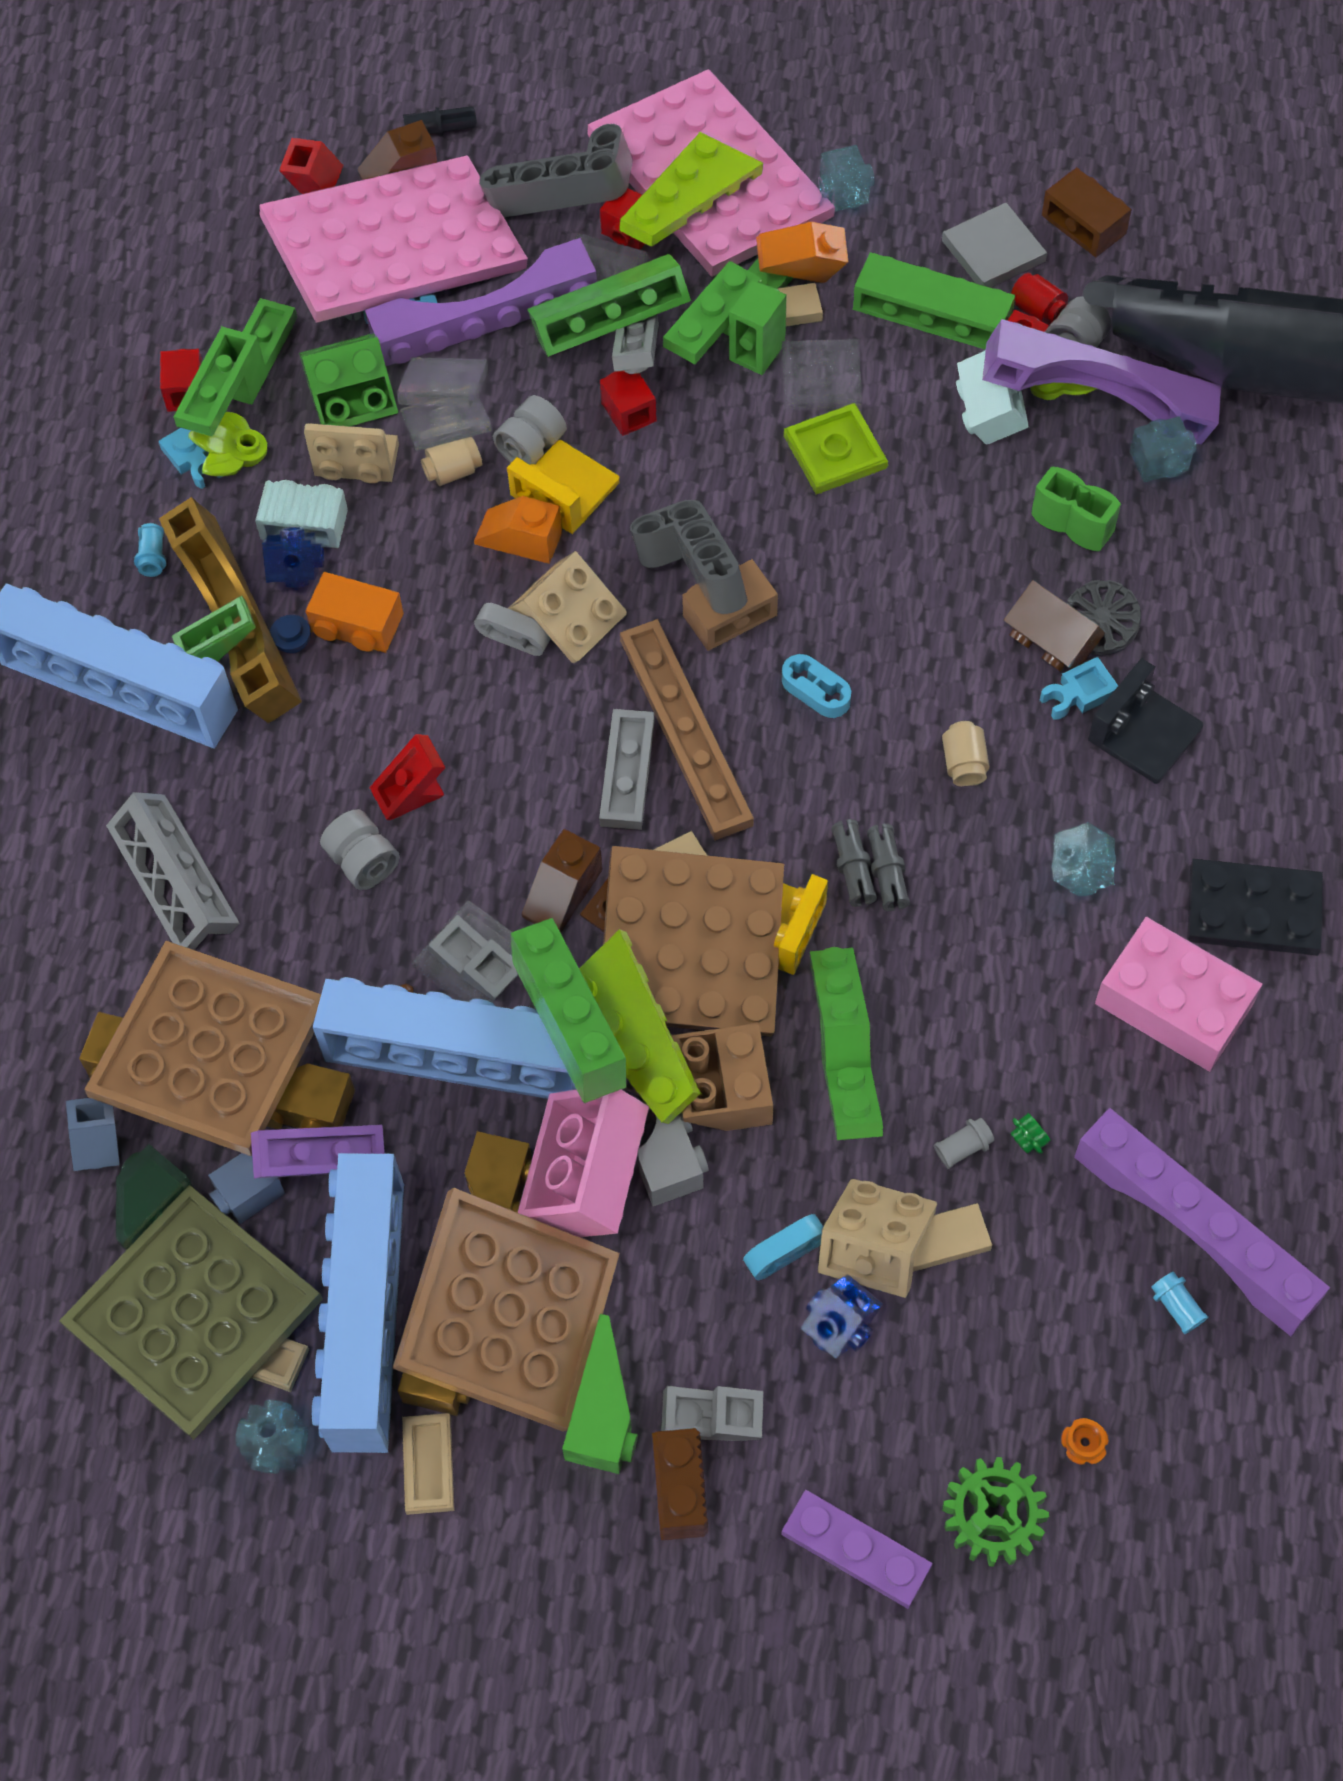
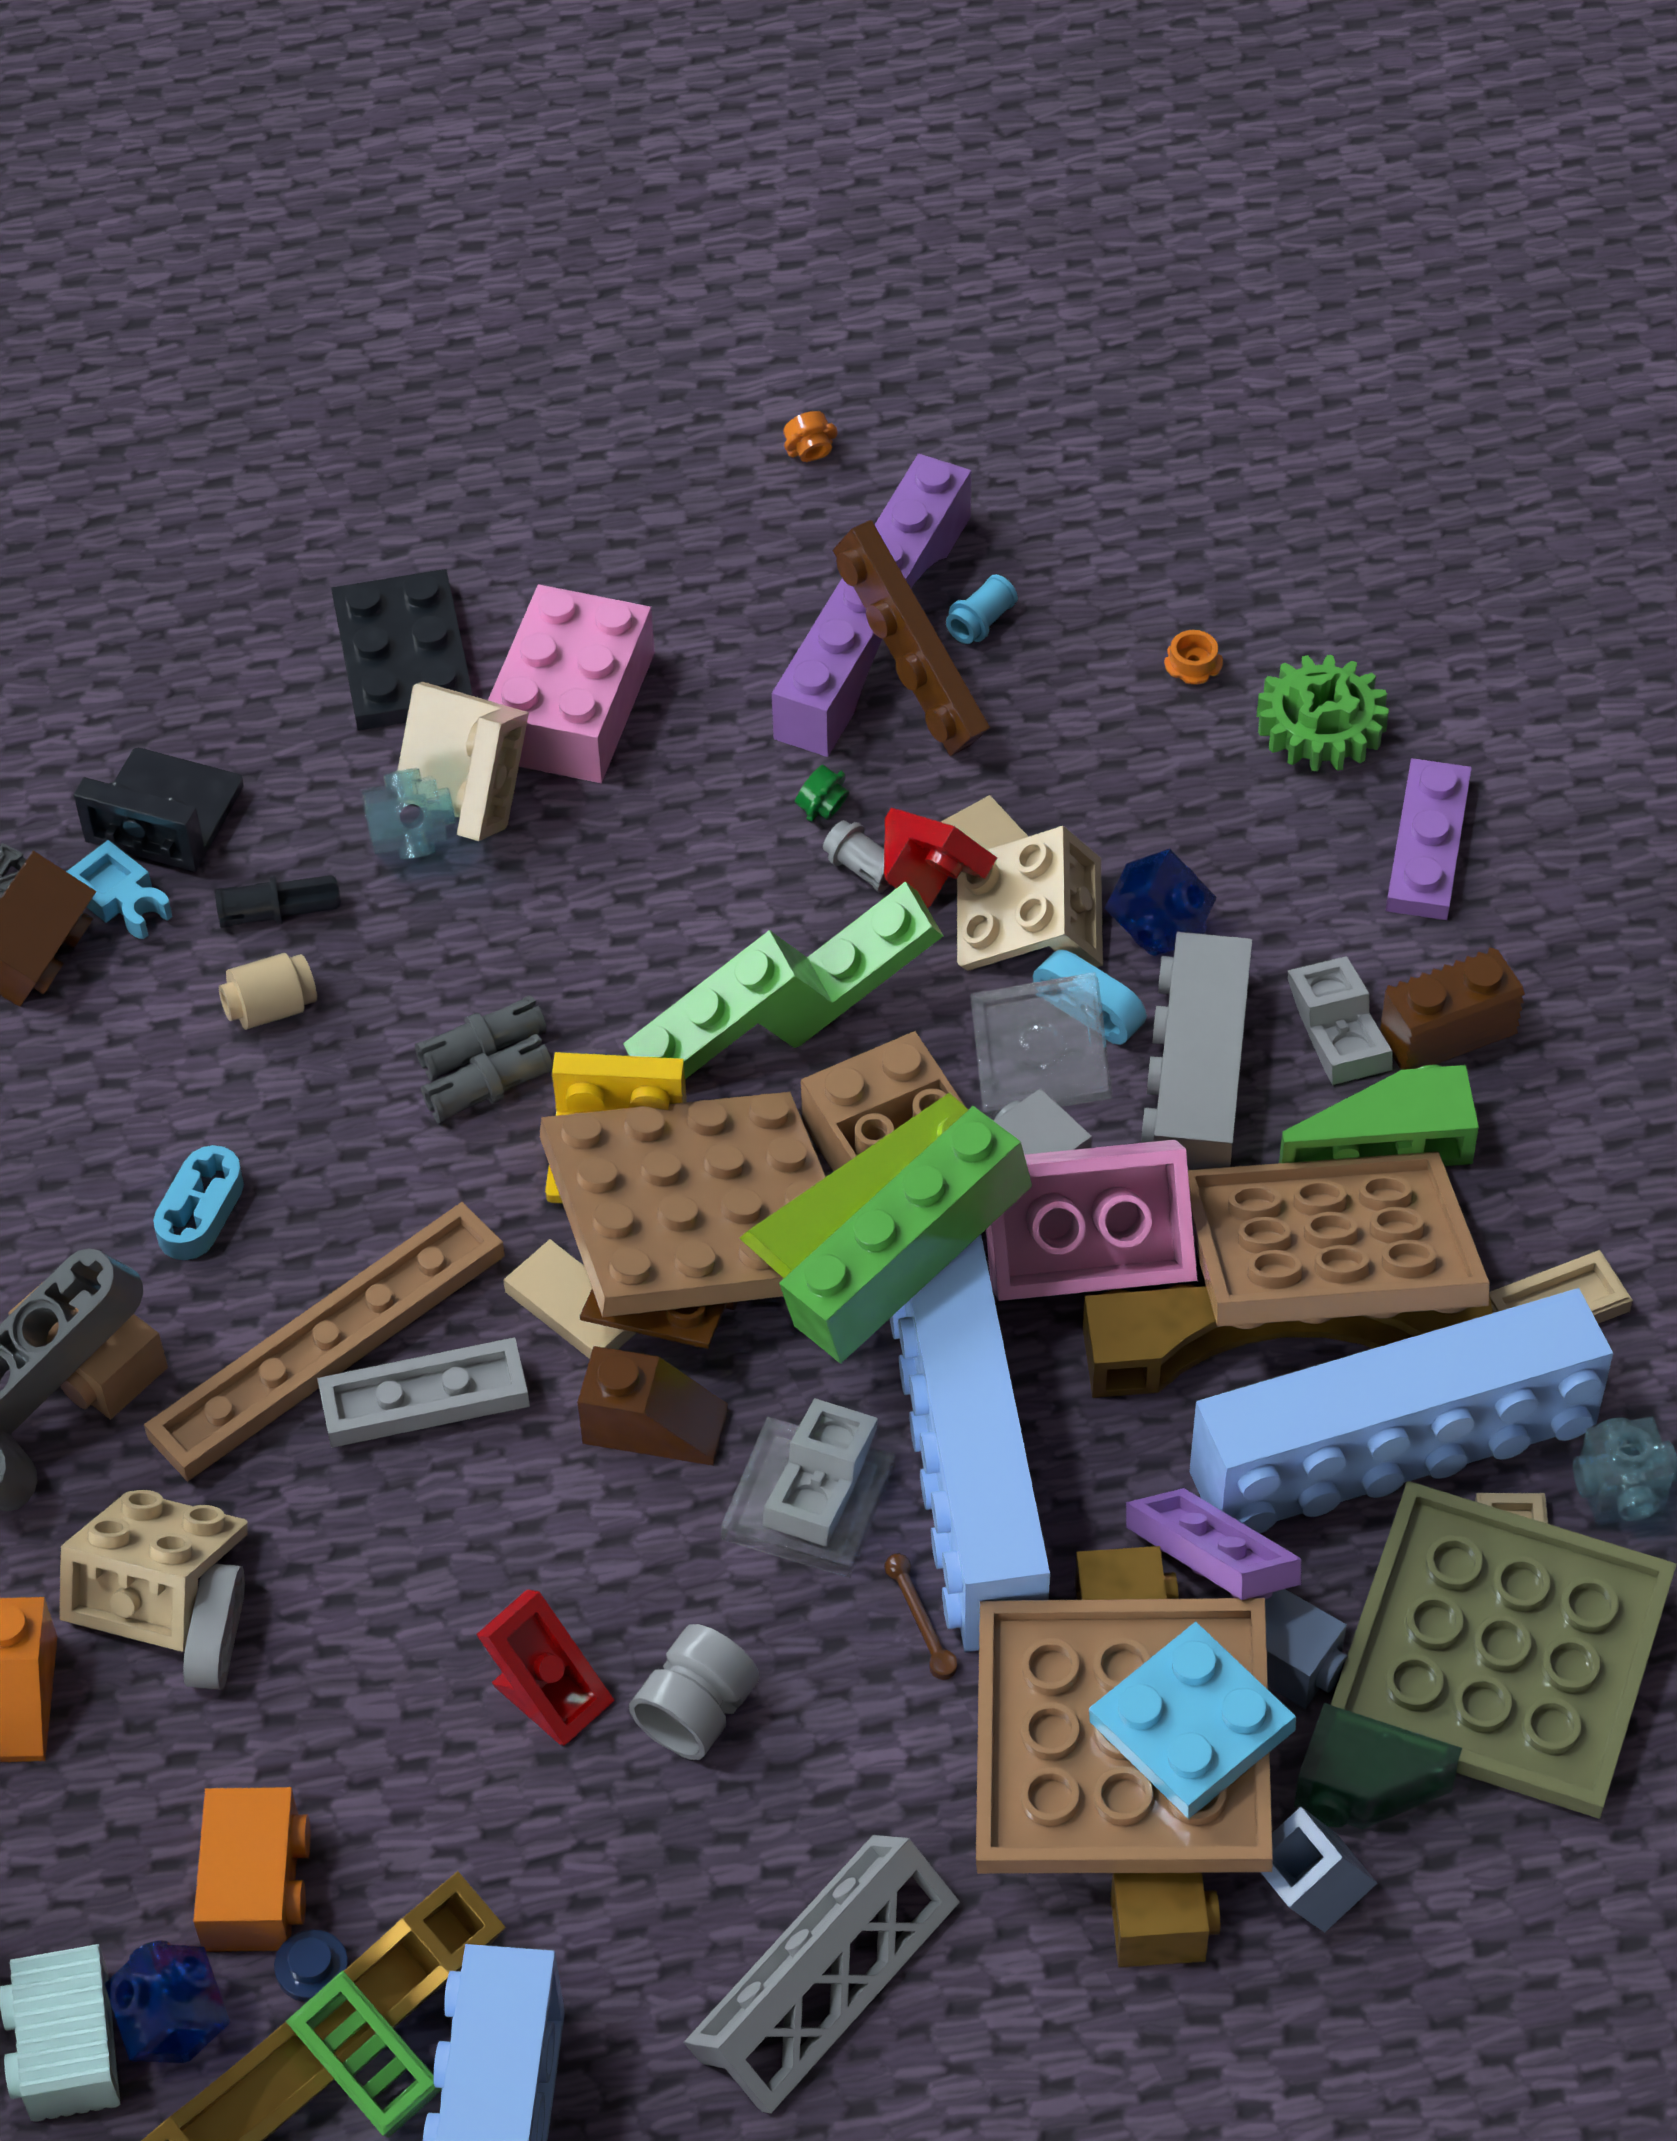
camera: 110 degrees left, 10 degrees down
(185, 1075) = (1192, 1719): none -> medium azure plate
(709, 1300) = (1201, 1047): none -> light grey brick
(748, 1195) = (1043, 1039): none -> clear tile
(939, 1175) = (928, 852): none -> red slope
(1044, 777) = (276, 899): none -> black axle
(1113, 908) = (469, 749): none -> tan bracket
(1145, 1204) = (910, 637): none -> reddish brown plate

